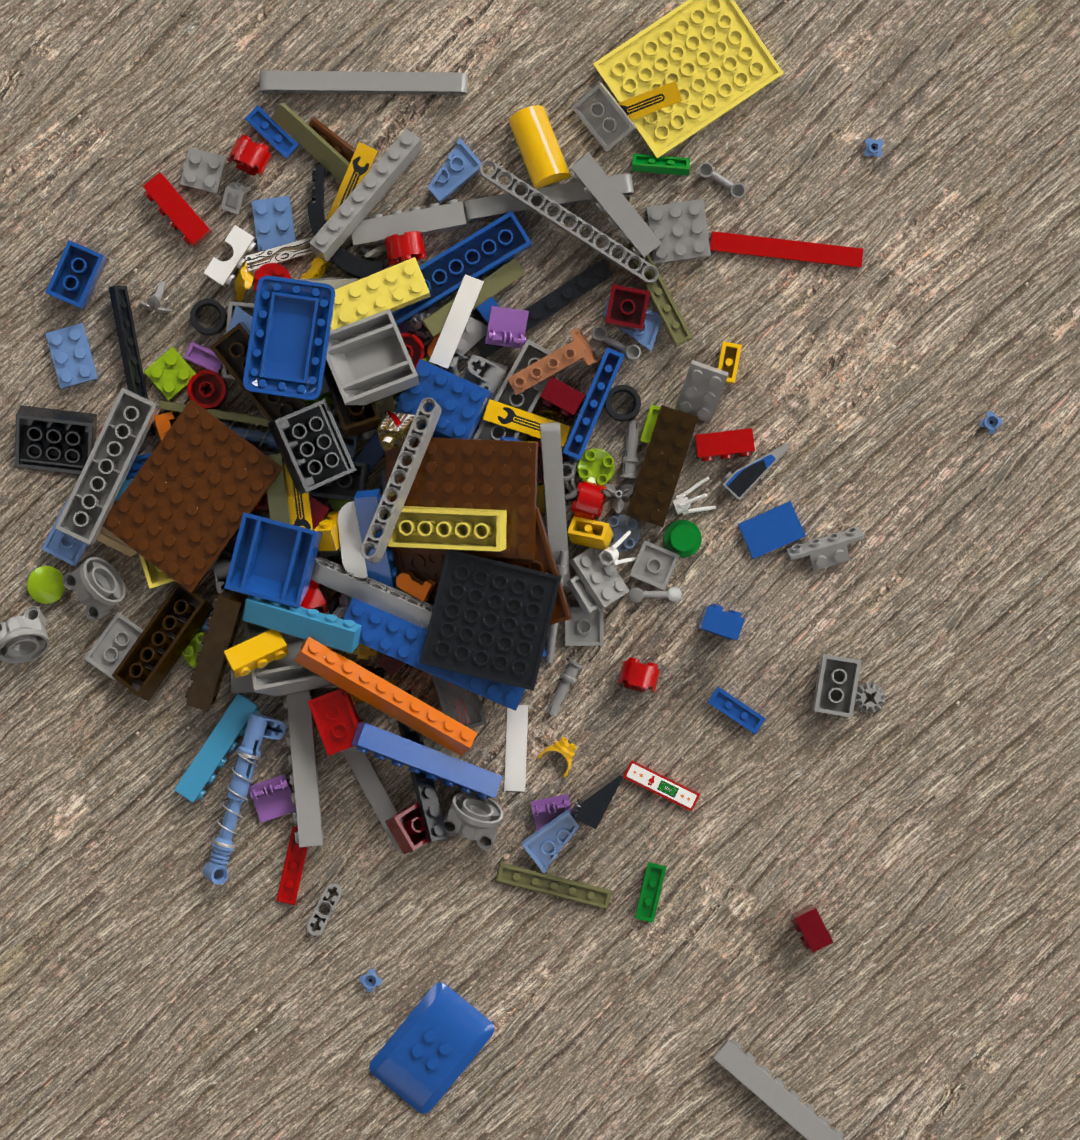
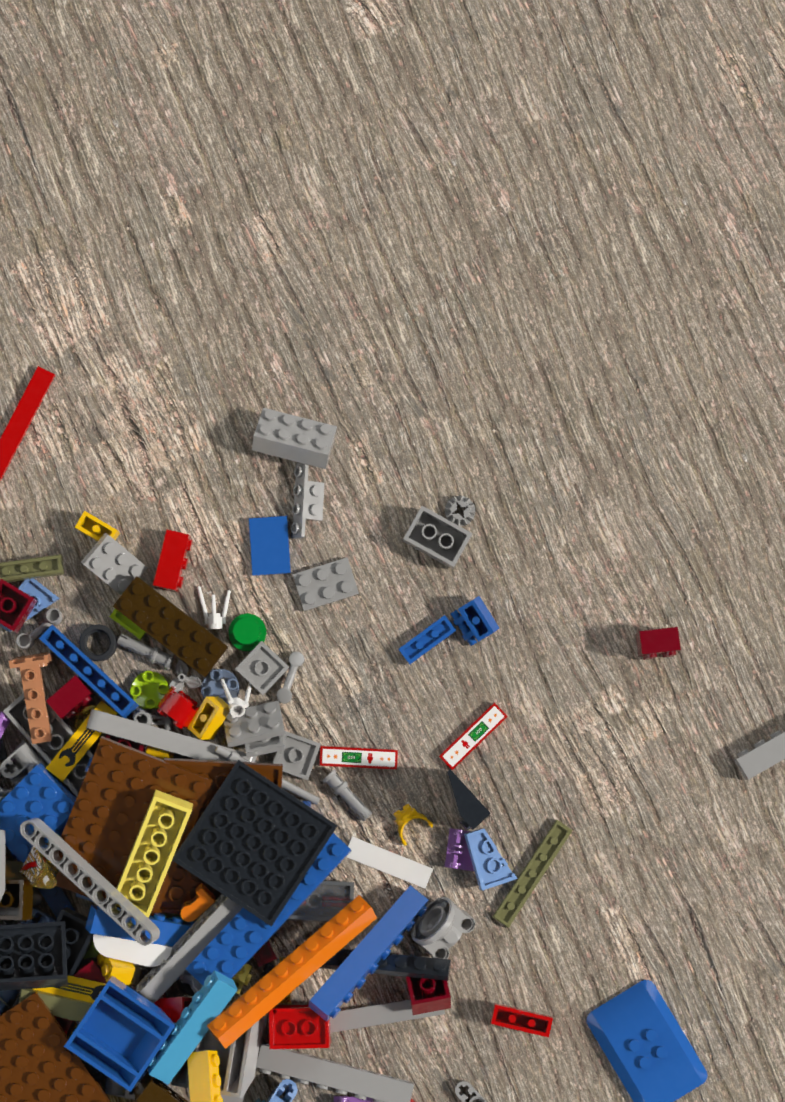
camera: 65 degrees left, 5 degrees down
(375, 980) = (564, 1078): medium blue plate -> none
(415, 923) = (521, 1020): none -> red brick
(603, 685) = (358, 757): none -> tile
(639, 675) = (361, 720): red brick -> none
(650, 892) = (570, 783): green plate -> none
(720, 622) = (338, 624): blue brick -> none
(745, 477) = (210, 550): slope -> none
(754, 596) = (325, 584): none -> light grey plate
(772, 751) = (477, 618): none -> blue brick
(882, 516) = (294, 438): none -> light grey brick
(991, 417) = (245, 300): medium blue plate -> none

